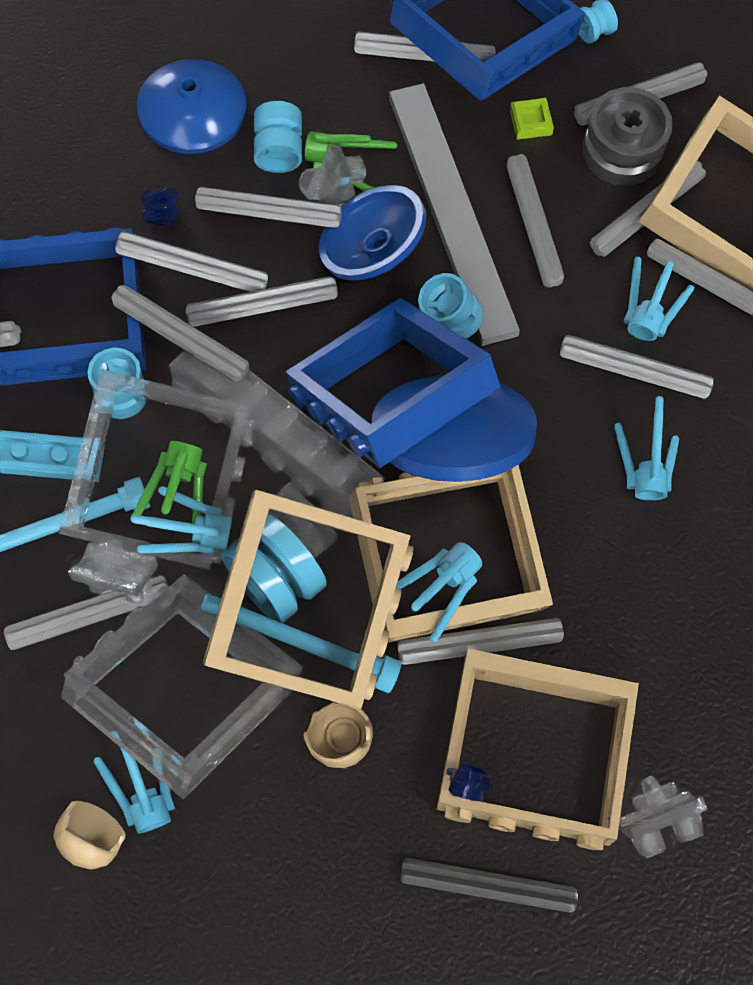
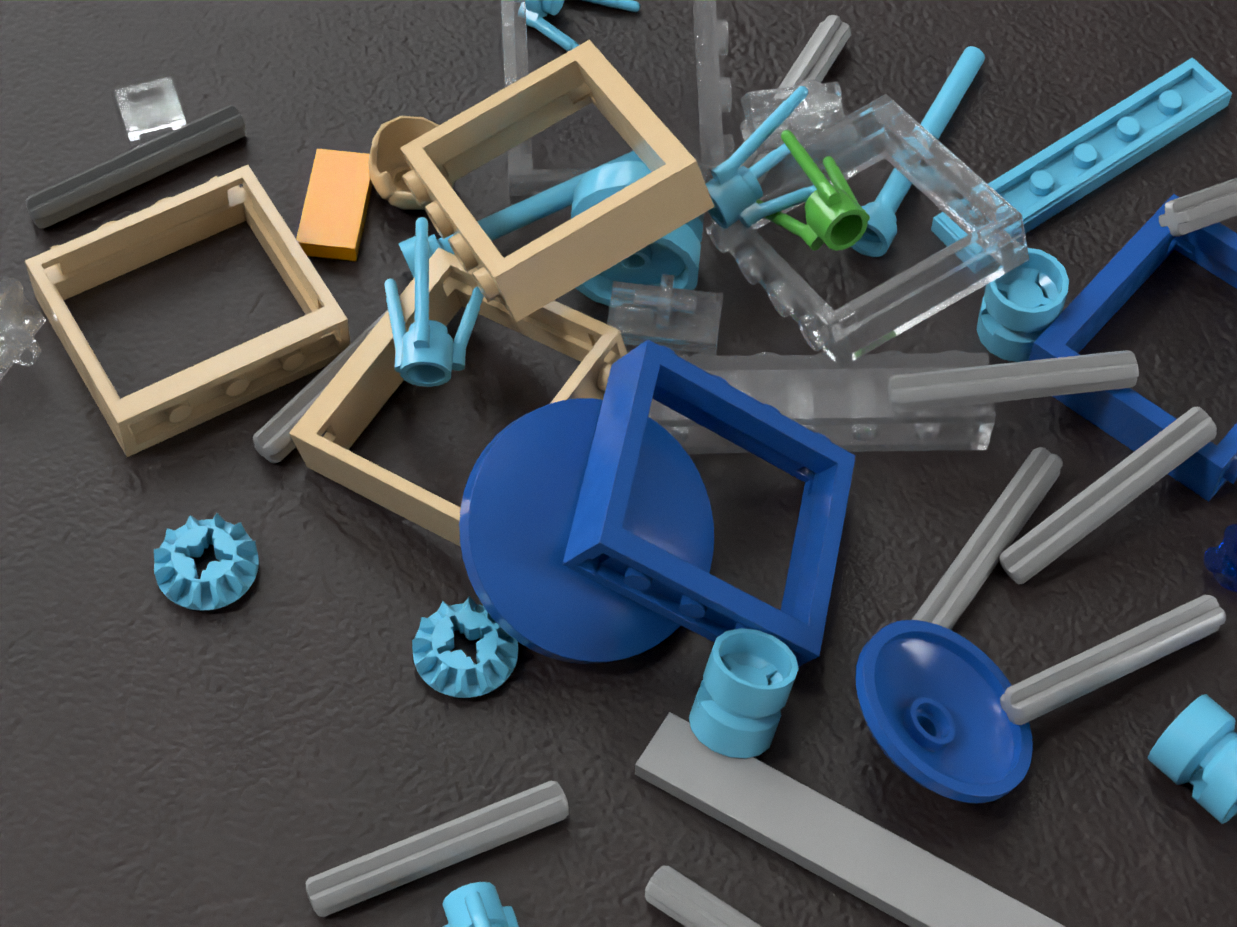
camera: 140 degrees right, 10 degrees down
(319, 143) = (1138, 807): bright green plant -> none
(334, 178) = (1071, 733): clear hips -> none
(396, 759) = (335, 205): none -> light orange tile
(448, 927) = (149, 110): none -> clear tile
(468, 782) = (217, 173): clear blue plate -> none
(558, 459) = (453, 671): none -> medium azure gear
(637, 609) = (221, 581): none -> medium azure gear
(652, 478) = (298, 704): medium azure plant -> none

